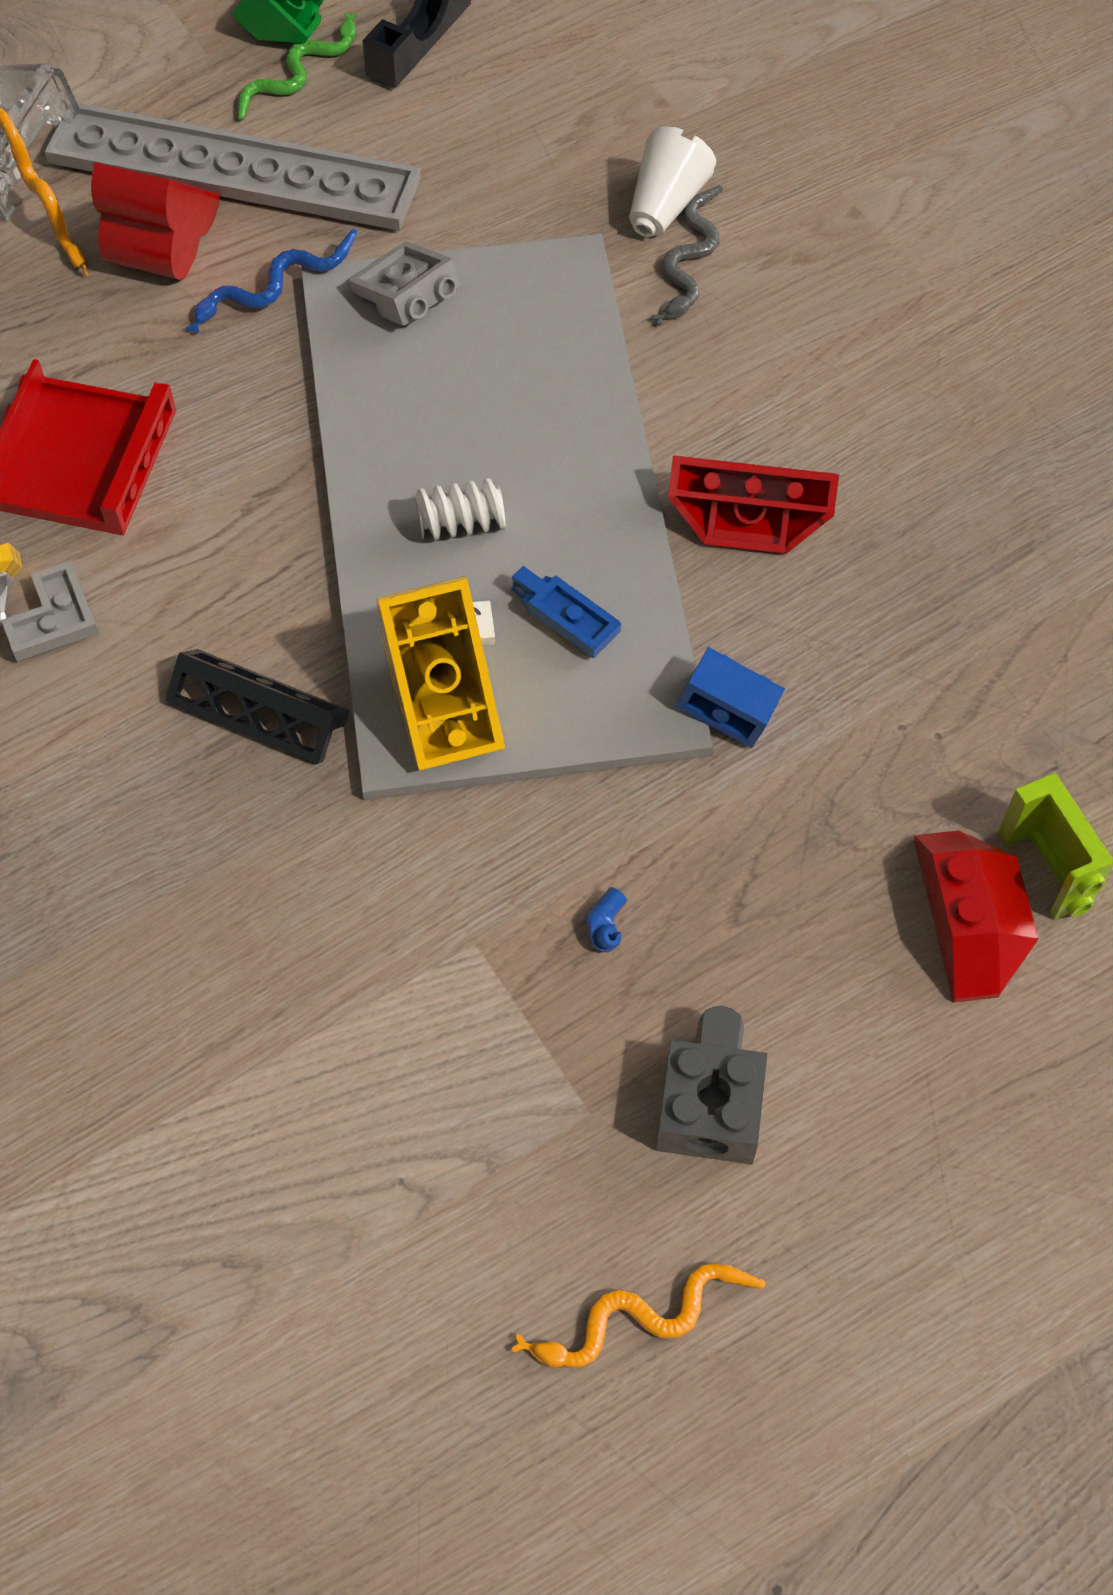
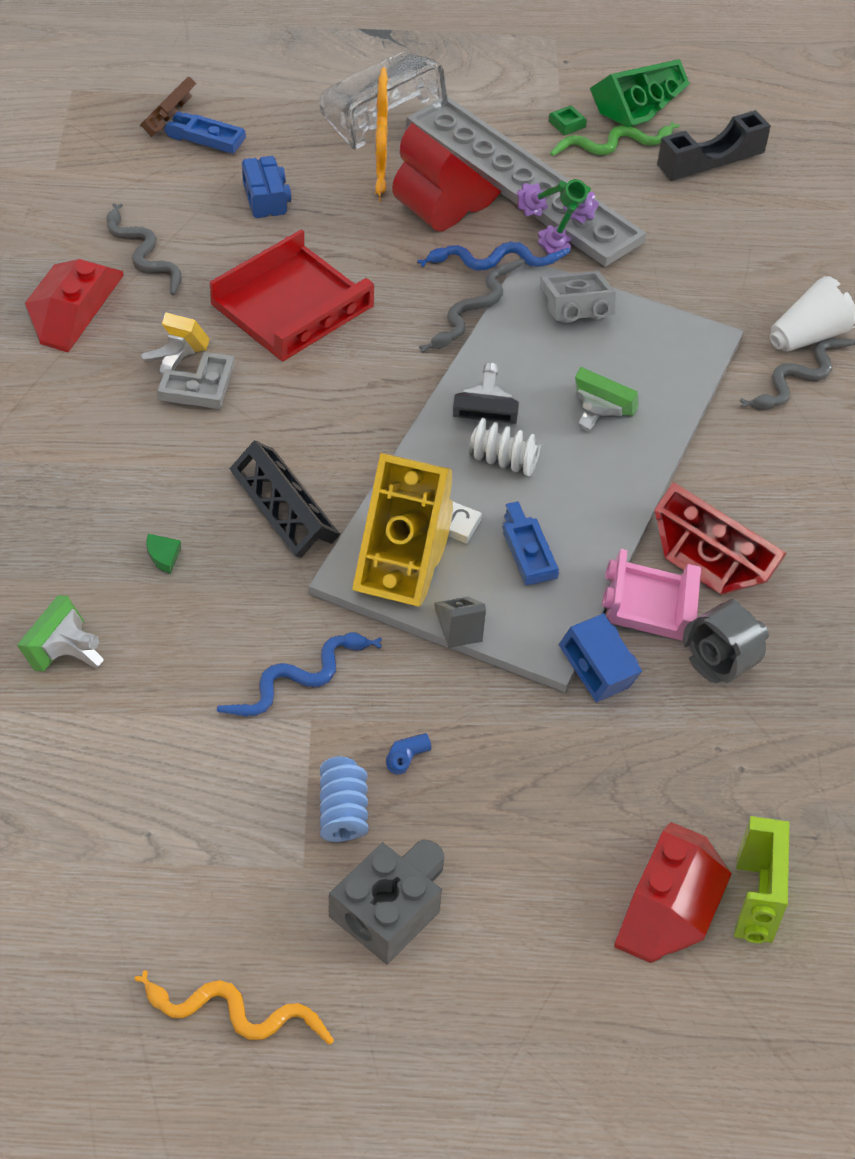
camera: 30 degrees right, 10 degrees down
(131, 1015) = (58, 634): none -> piece
(166, 844) = (163, 551): none -> green tile
(227, 66) = (567, 120): none -> green tile
(290, 410) = (444, 338): none -> dark grey animal
(331, 168) = (576, 201): none -> medium lavender plant
(401, 462) = (486, 400): none -> black piece
(452, 829) = (350, 641): none -> blue animal
(519, 393) = (603, 398): none -> bright green piece
(558, 735) = (461, 620): none -> dark grey slope
(585, 1017) = (343, 800): none -> light blue piece
(731, 597) = (651, 597): none -> bright pink panel
(841, 607) = (725, 642): none -> dark grey brick

